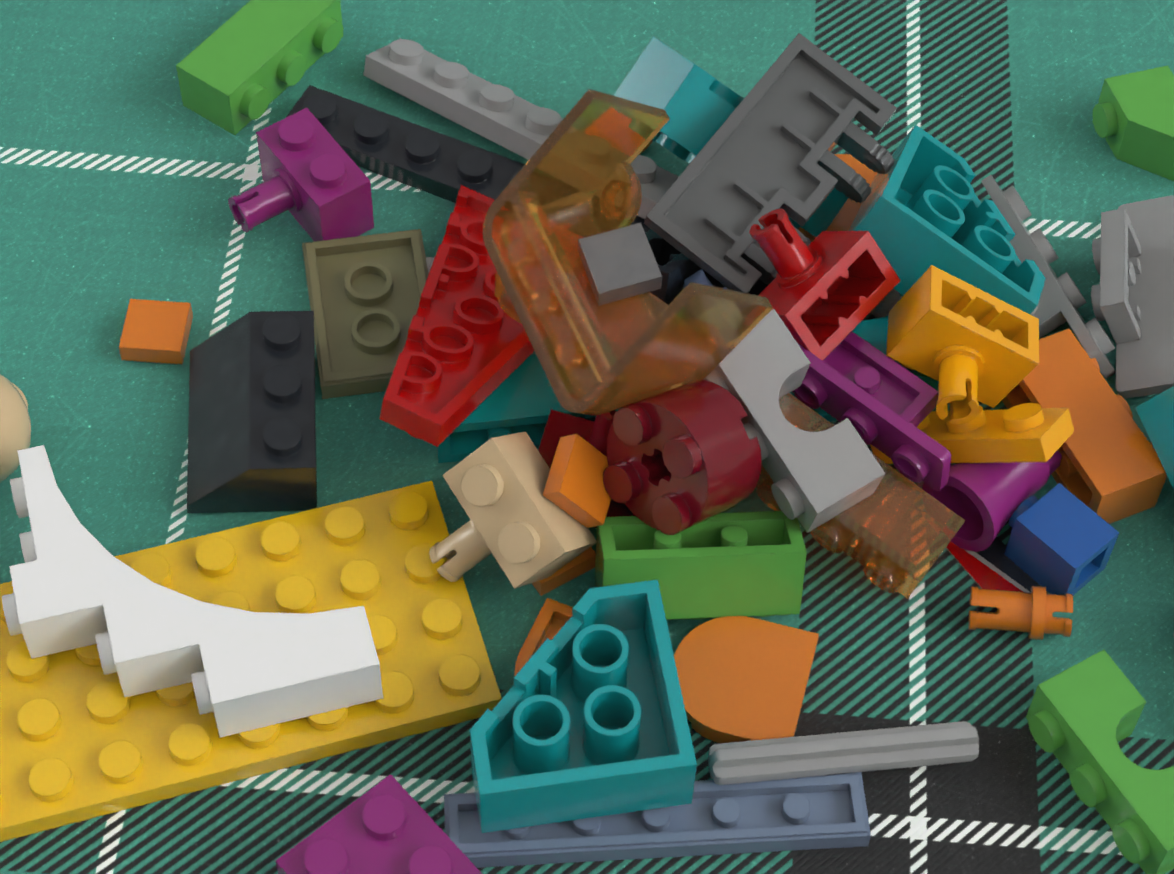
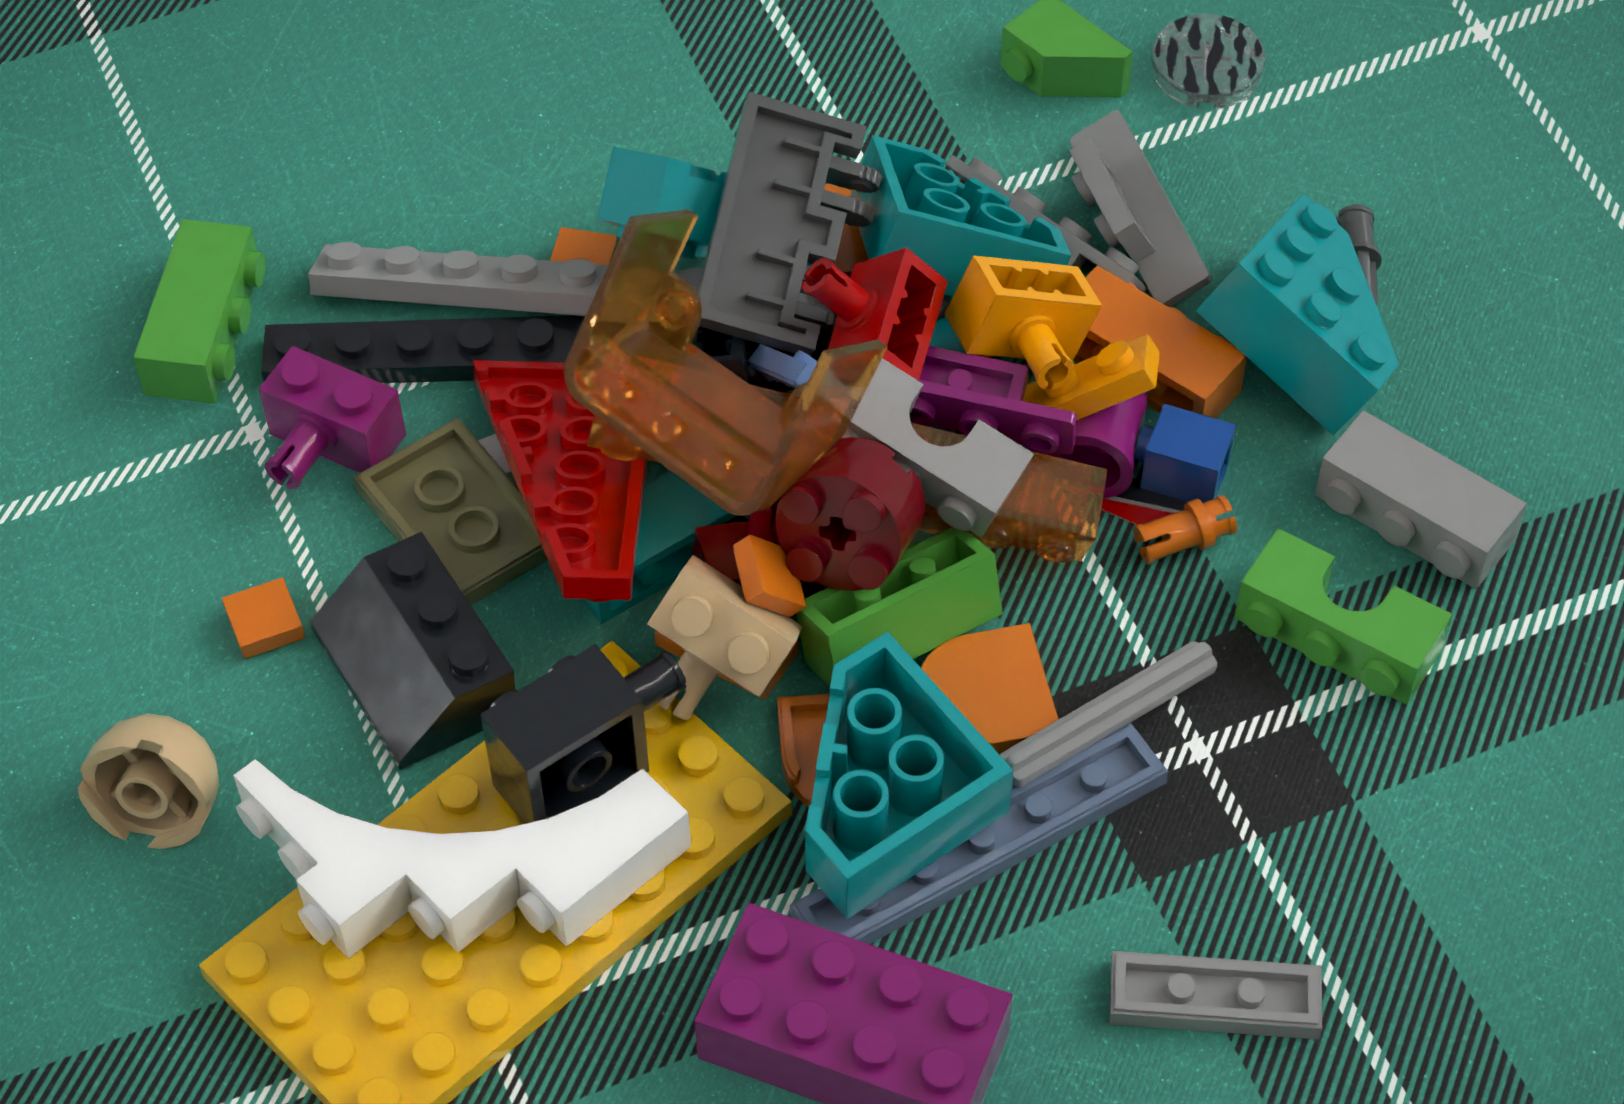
camera: 25 degrees left, 0 degrees up
(325, 543) = (573, 731): none -> black brick
(619, 263) = (711, 366): flat silver tile -> none

